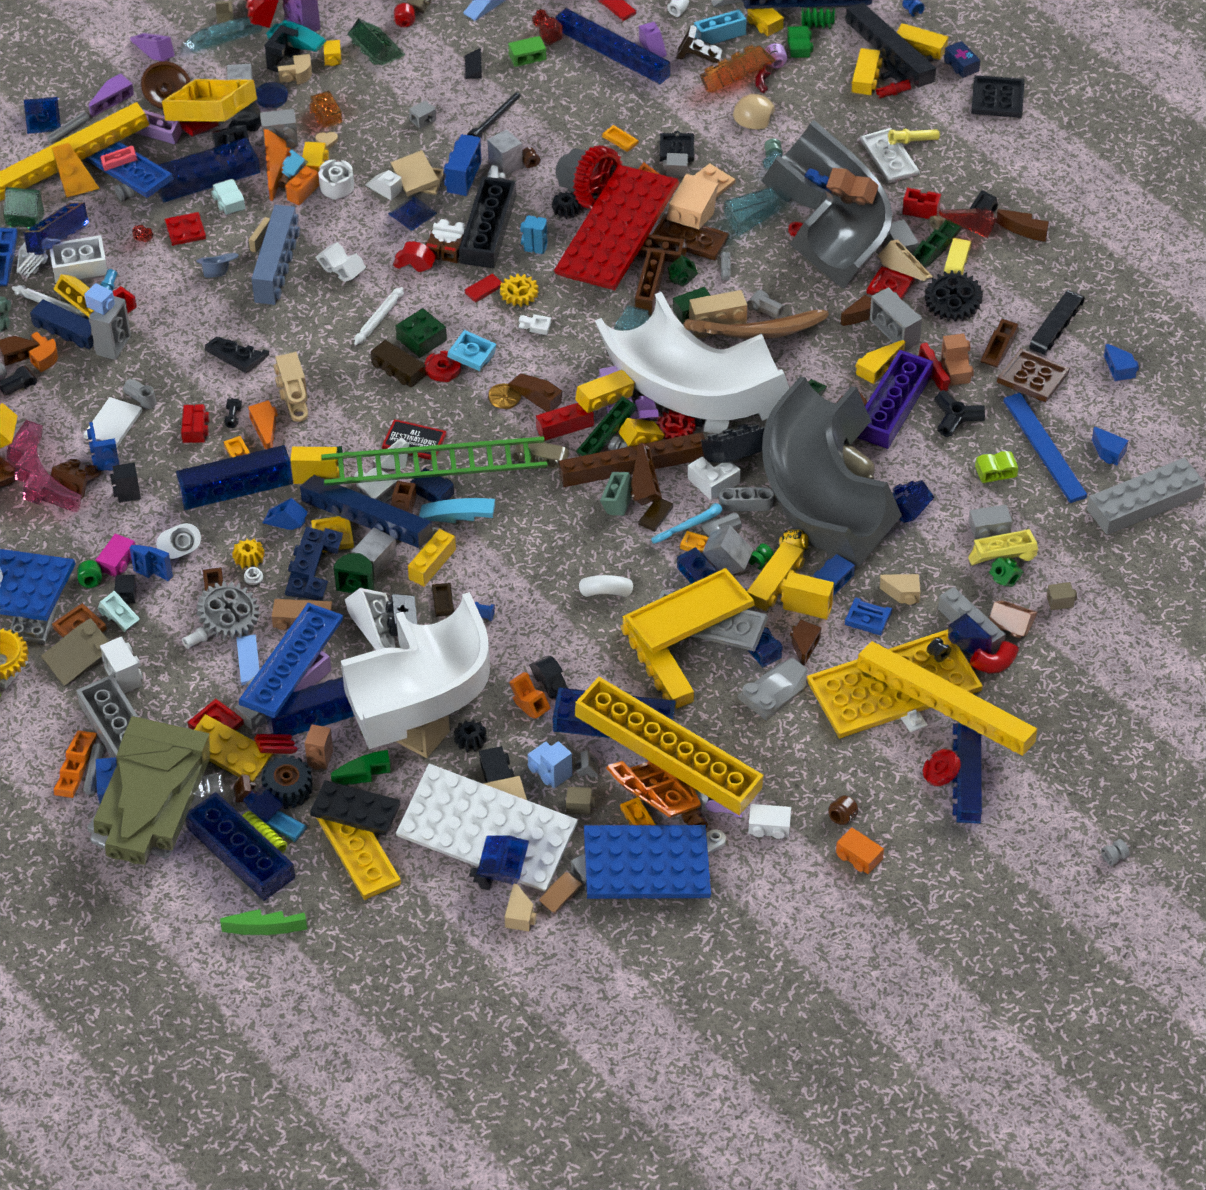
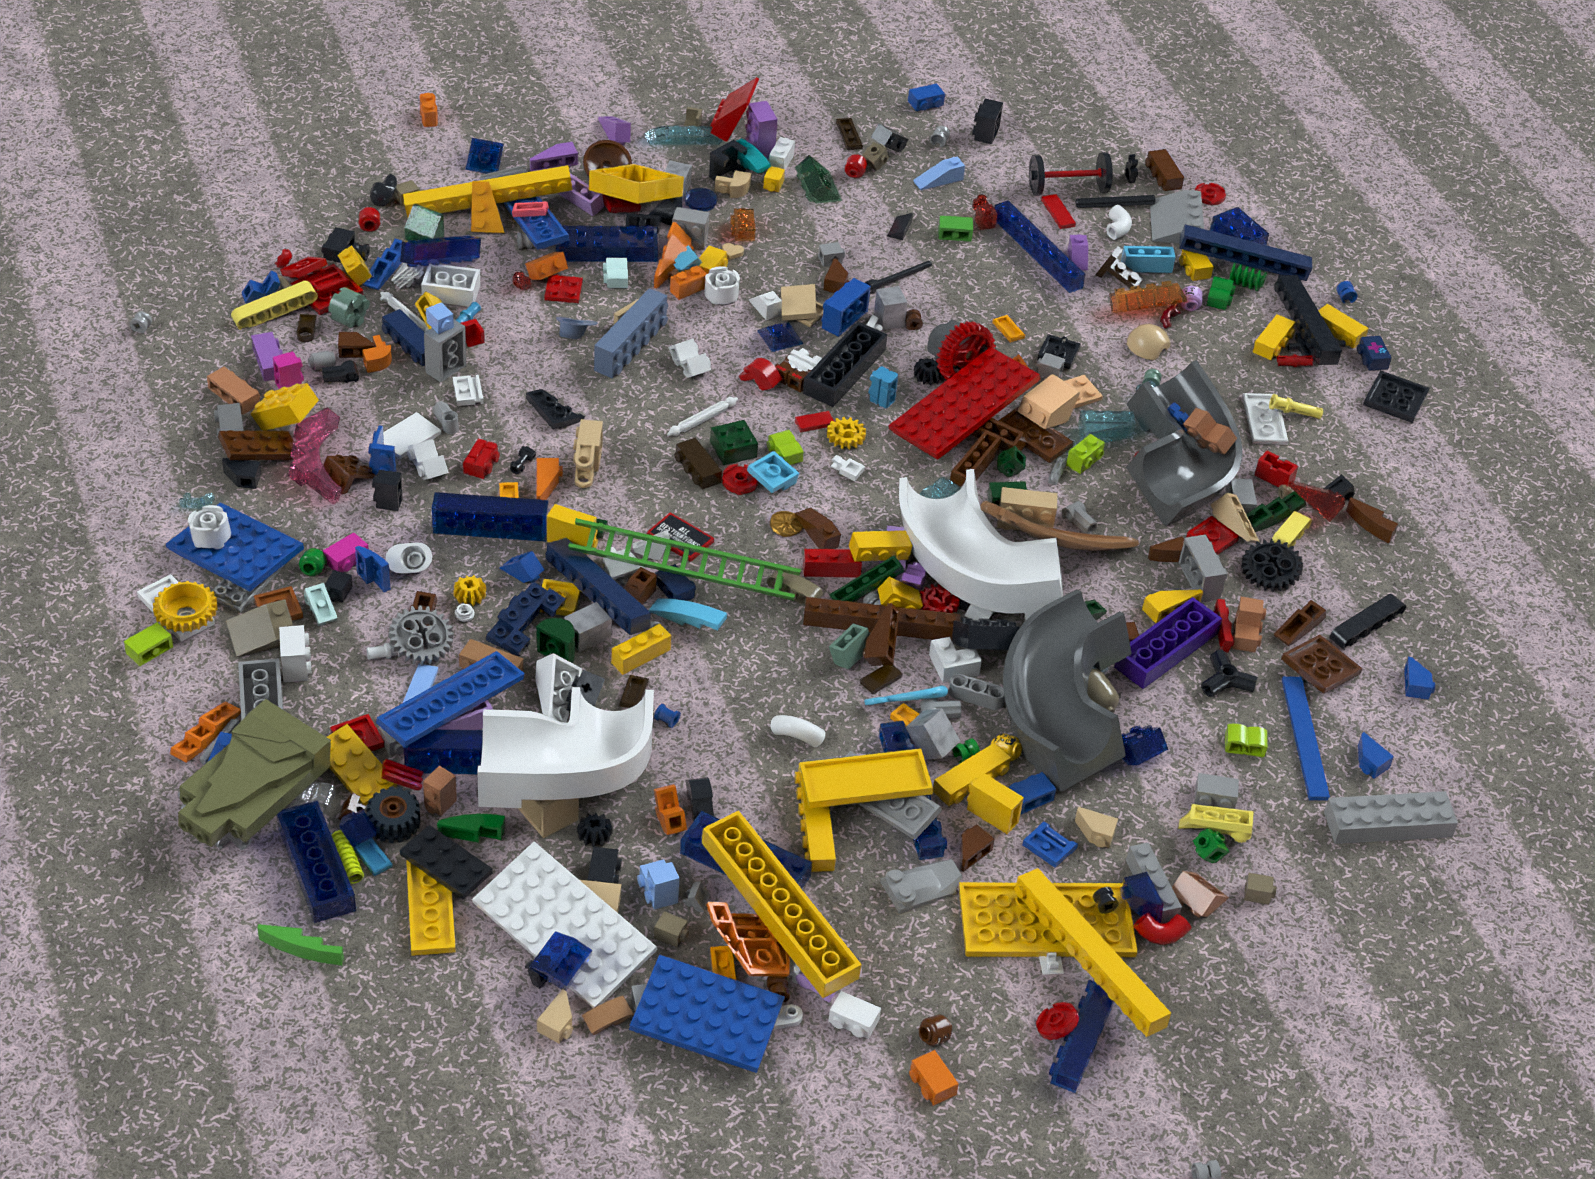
camera: 15 degrees right, 5 degrees down
(144, 441) = (427, 460): none -> white brick
(146, 360) = (467, 390): none -> white plate
(159, 210) = (546, 265): none -> orange brick
(328, 23) = (782, 153): none -> white brick
(440, 138) = (835, 277): none -> reddish brown slope
(470, 320) = (785, 446): none -> lime brick
(745, 241) = (1085, 454): none -> lime brick

